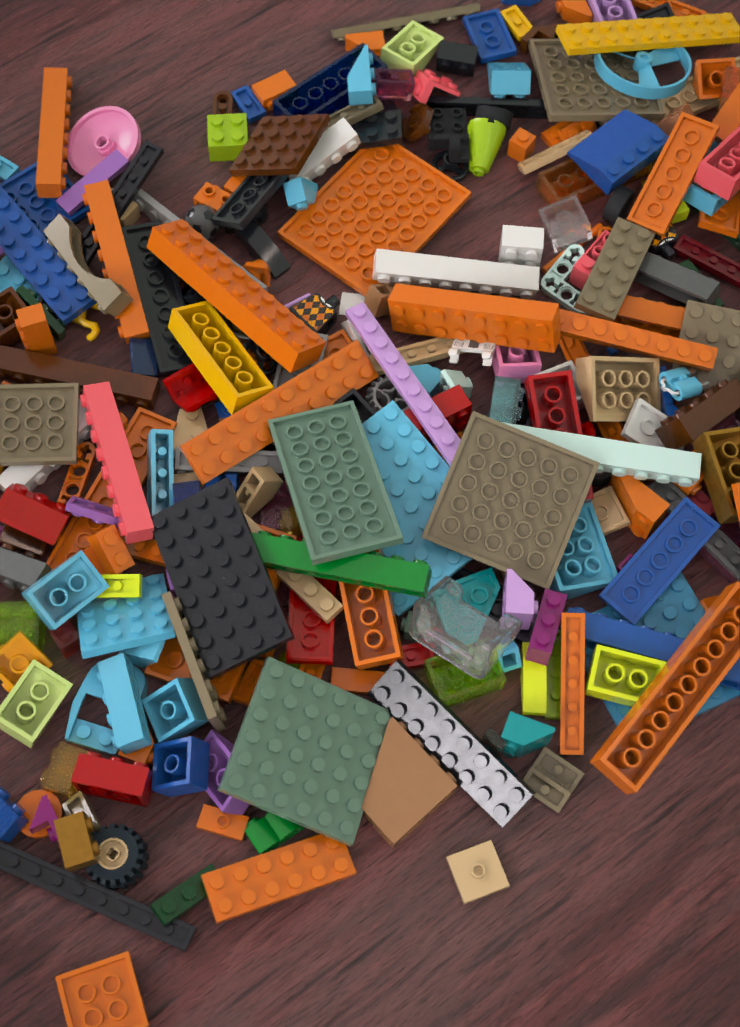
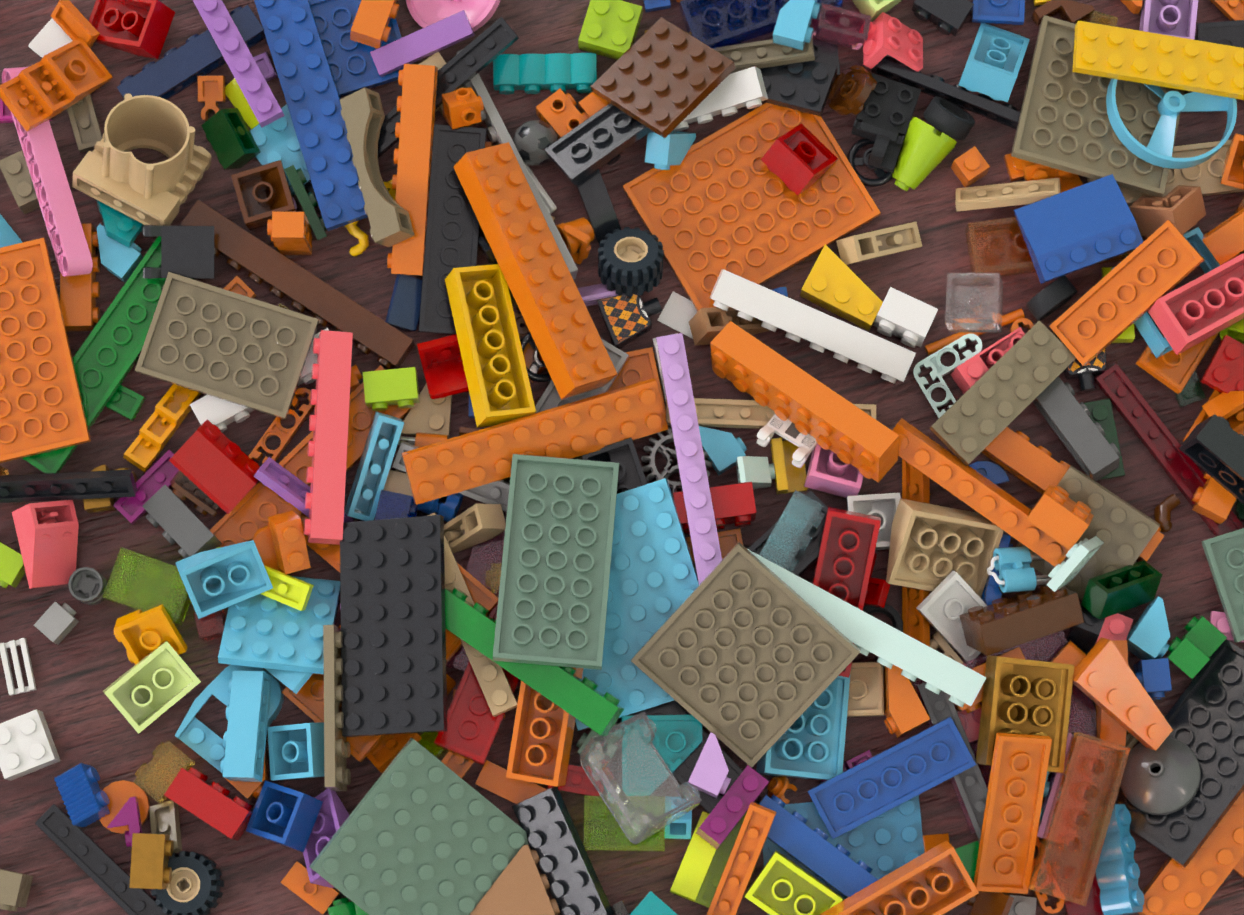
camera: 25 degrees right, 15 degrees up
(138, 210) = (462, 107): none -> orange brick
(153, 414) = (391, 388): none -> lime brick
(190, 178) = (544, 72): none -> teal brick
(304, 274) = (630, 261): none -> black wheel
(398, 173) = (798, 159): none -> red slope
(466, 244) = (840, 291): none -> yellow wedge
(477, 212) = (879, 243): none -> tan slope
(479, 376) = (787, 476): none -> yellow panel
(574, 601) = (778, 786): none -> orange plate
(700, 327) = (1060, 516): none -> orange brick
(726, 351) = (1077, 559): none -> light aqua plate

